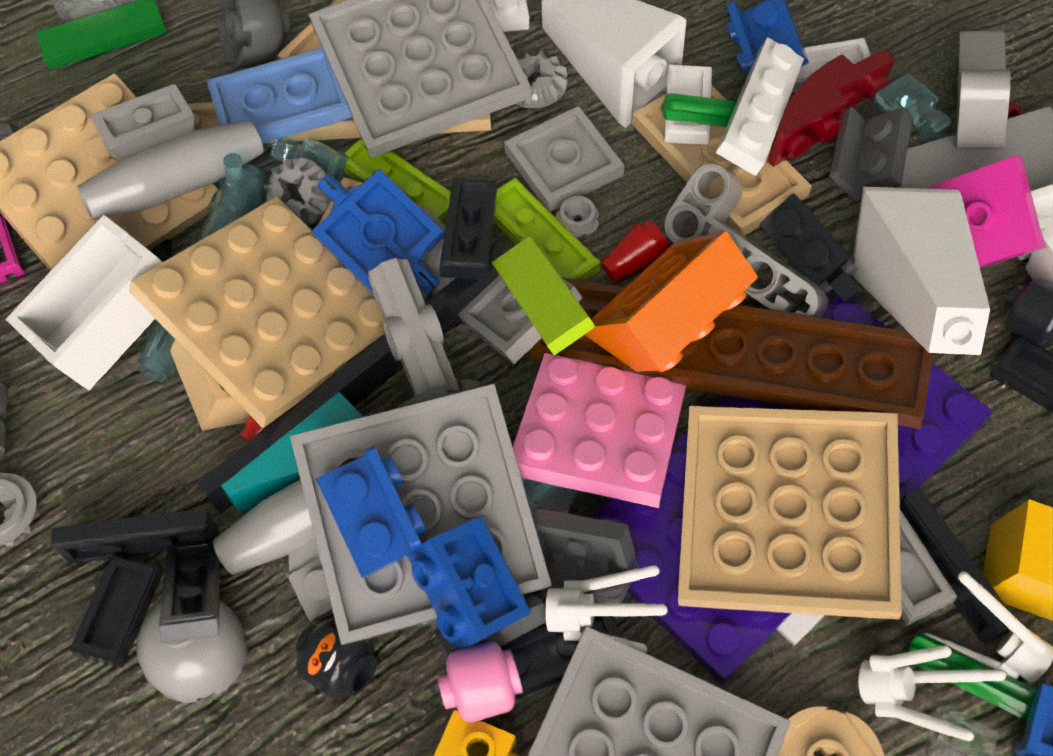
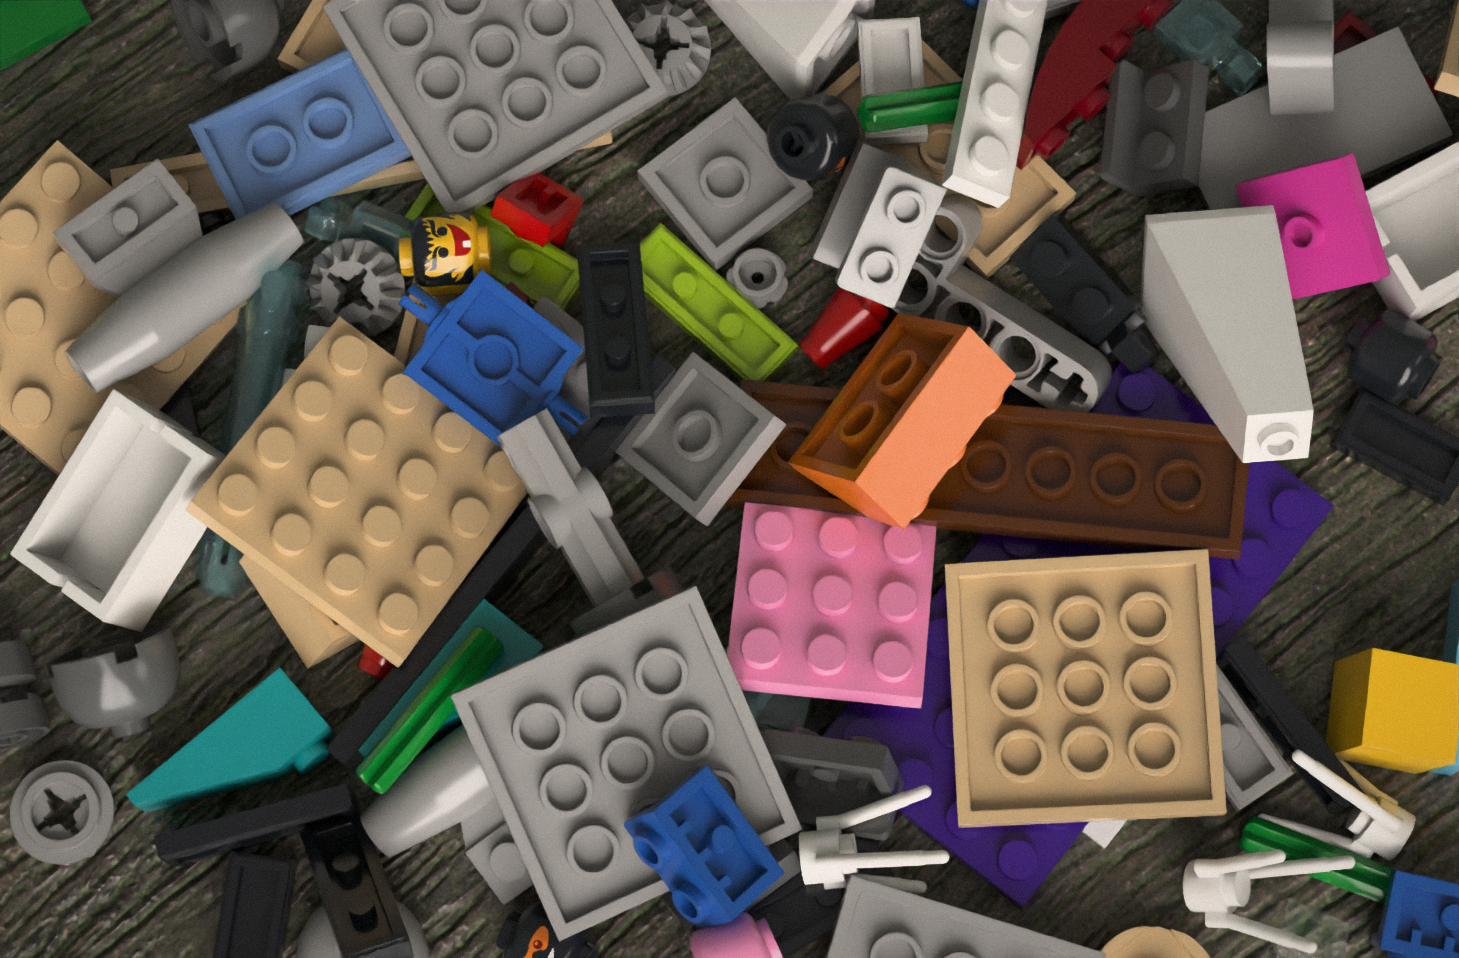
camera: 10 degrees left, 15 degrees up
(60, 418) = (117, 680): none -> dark grey cylinder
(140, 480) = (249, 745): none -> teal slope
(269, 467) = (428, 710): none -> green axle
(358, 162) = (445, 252): none -> head
(371, 513) = (570, 780): blue bracket -> none
(430, 155) = (538, 210): none -> red bracket
(543, 295) = (734, 433): lime tile -> none
(628, 126) = (812, 136): none -> black head
(668, 171) = (877, 222): none -> light grey panel

